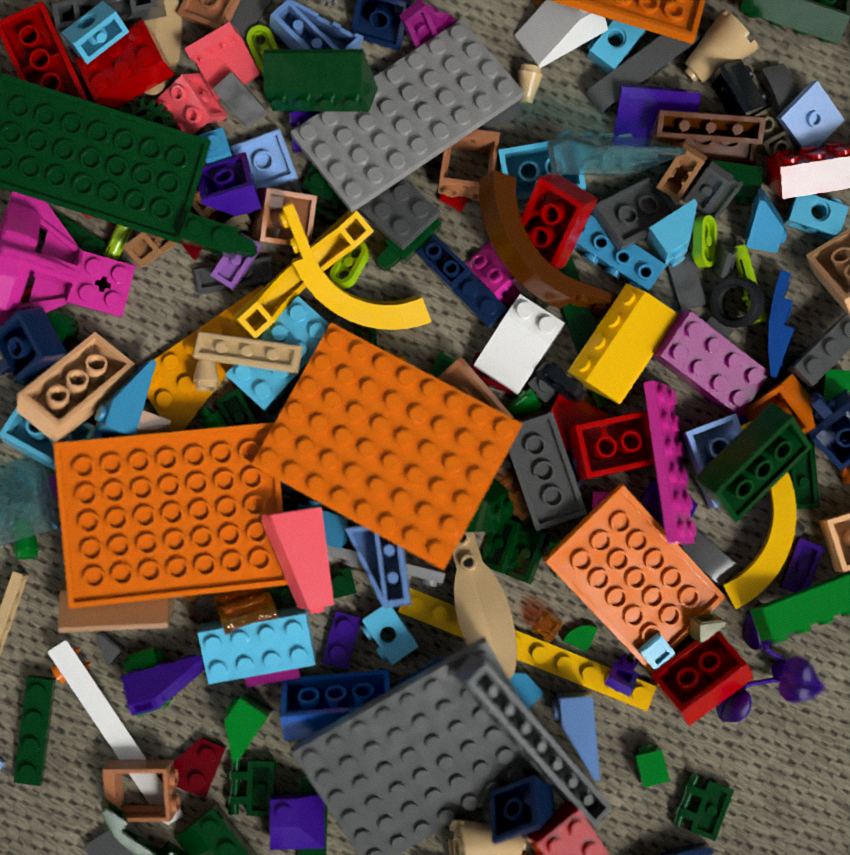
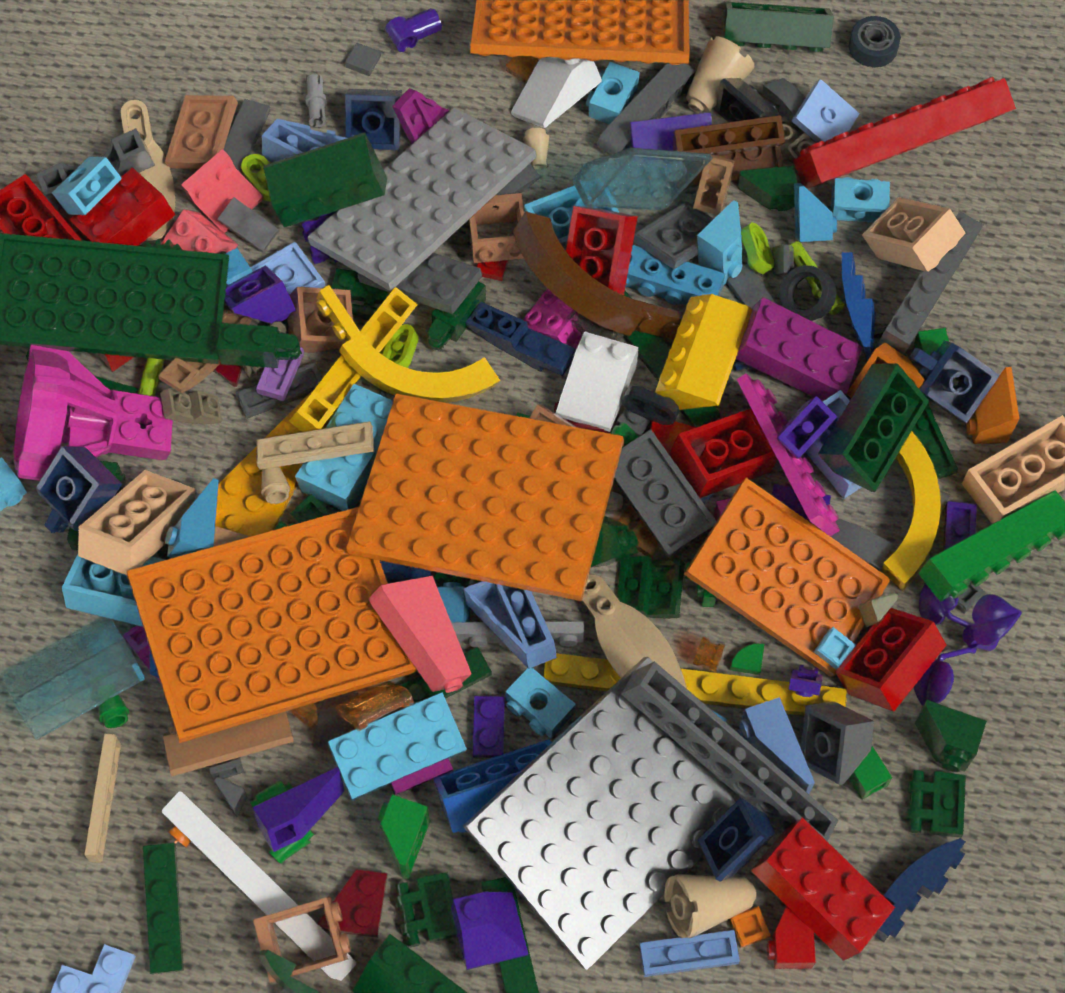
camera: 15 degrees left, 20 degrees down
(152, 277) = (192, 408): none -> dark tan slope
(631, 737) = (835, 740): none -> dark grey slope
(690, 451) = (806, 426): none -> dark purple slope
(714, 191) = (754, 196): dark grey plate -> none
(734, 762) = (950, 735): none -> dark green slope

